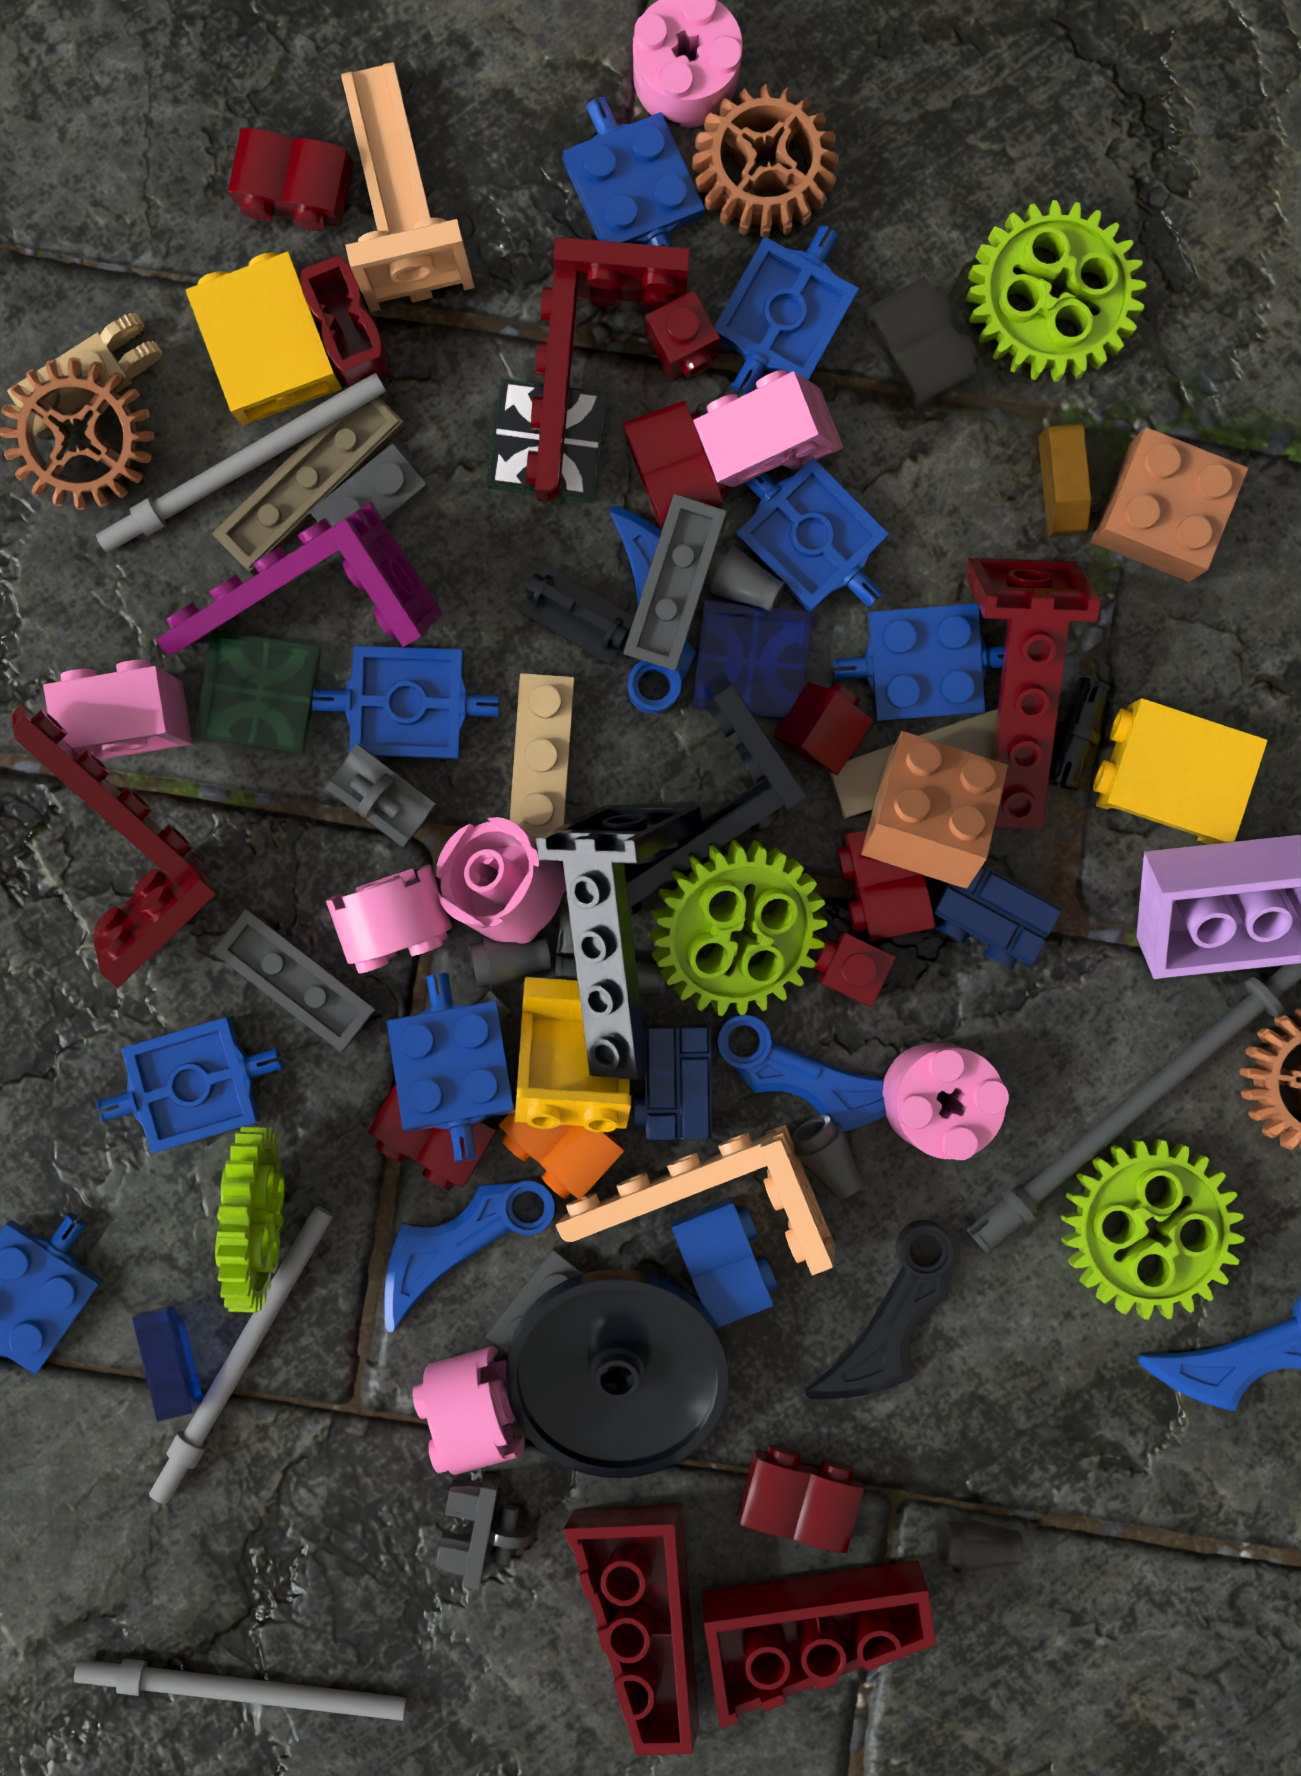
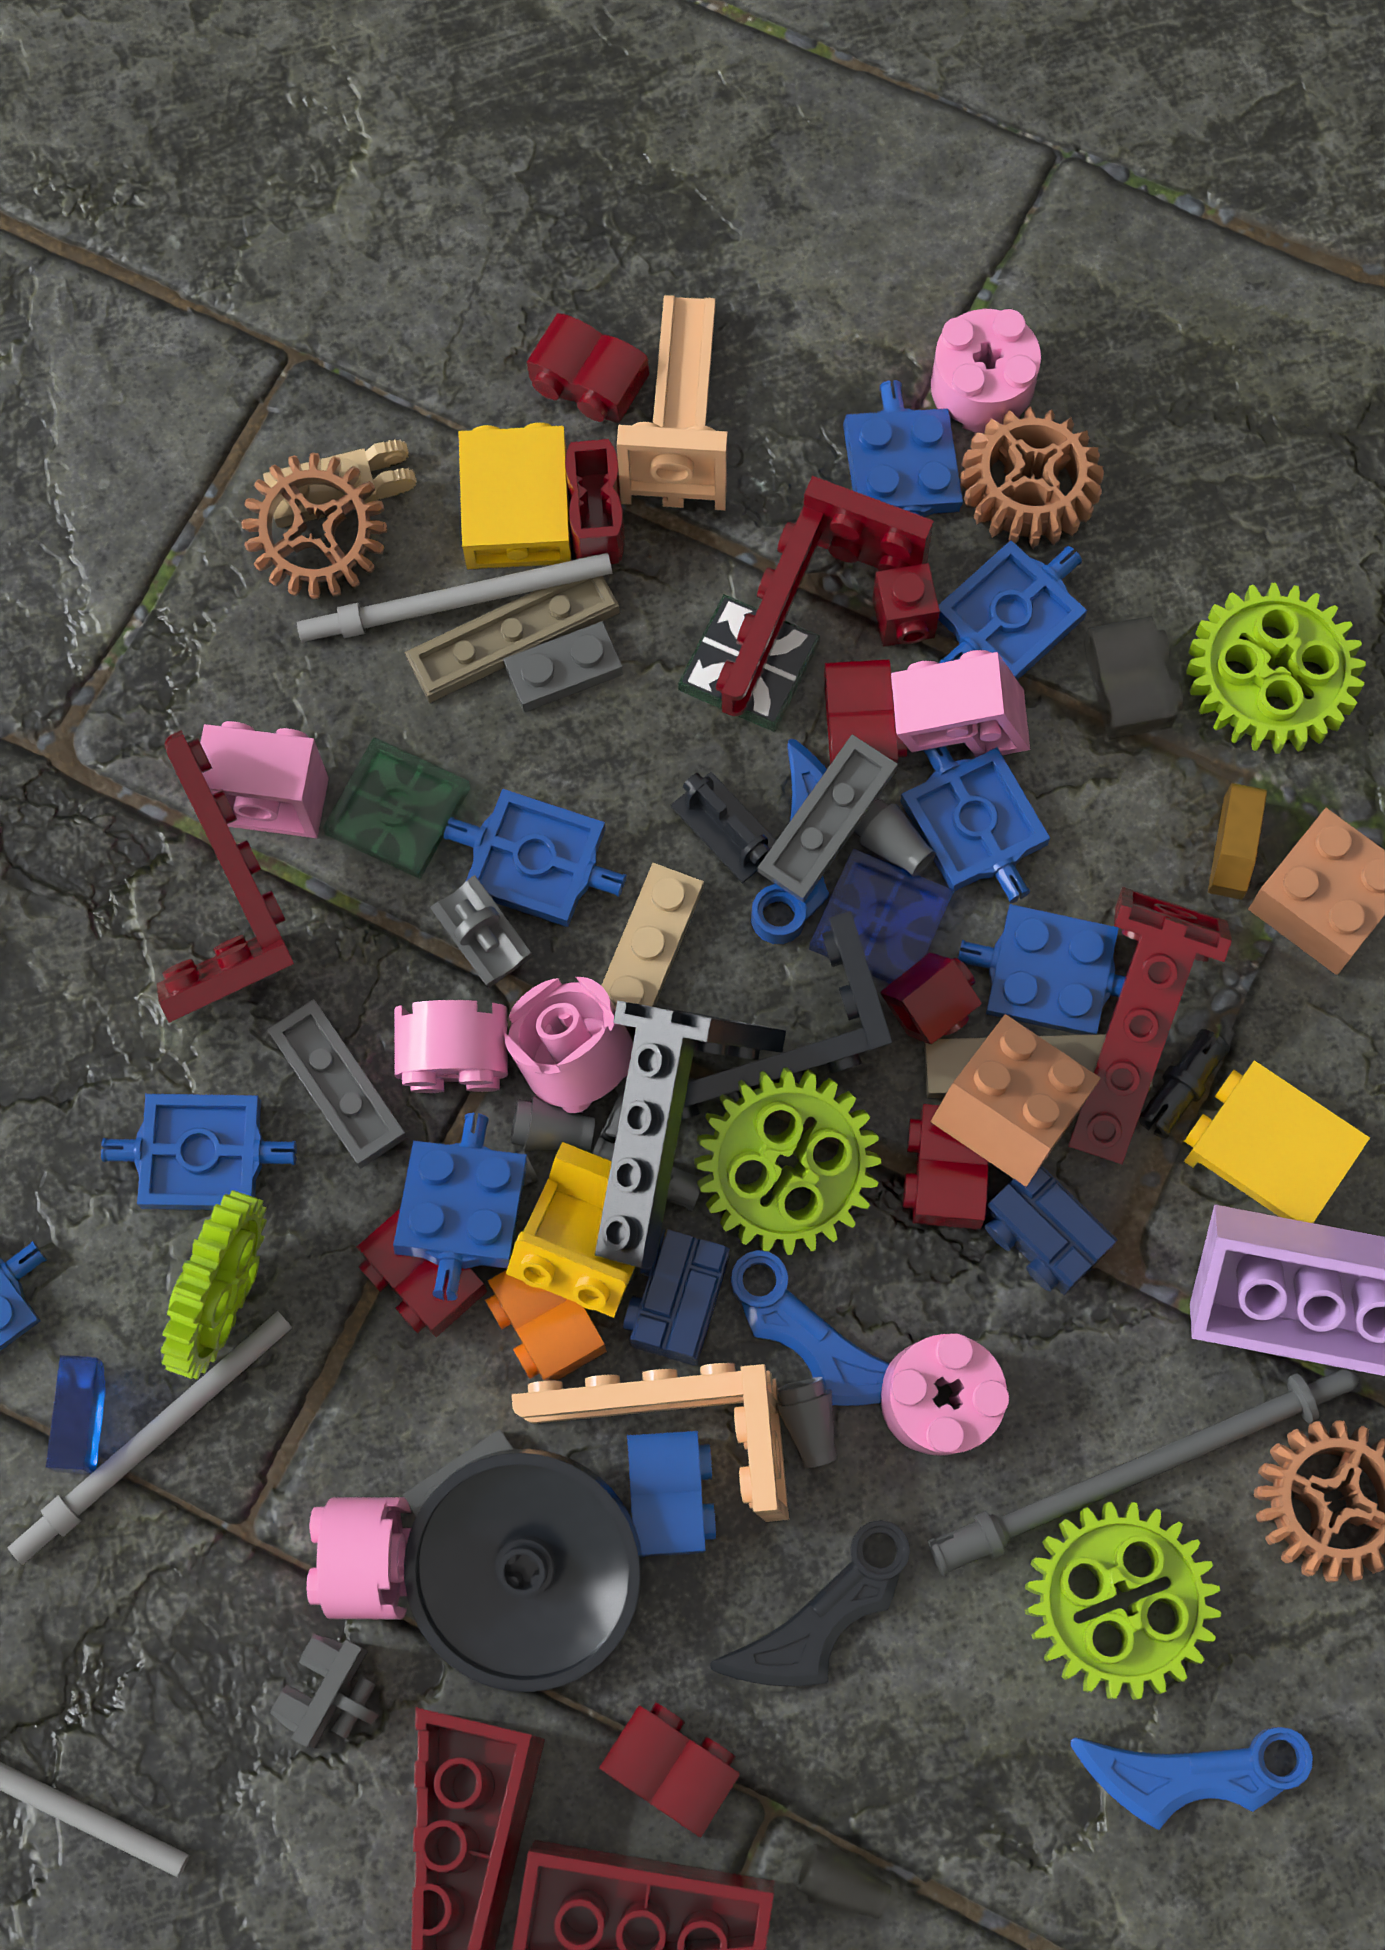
camera: 20 degrees right, 15 degrees down
(371, 564) = (545, 709): magenta bracket -> none
(429, 1252) = (375, 1394): blue piece -> none
(853, 968) = (890, 1238): dark red brick -> none

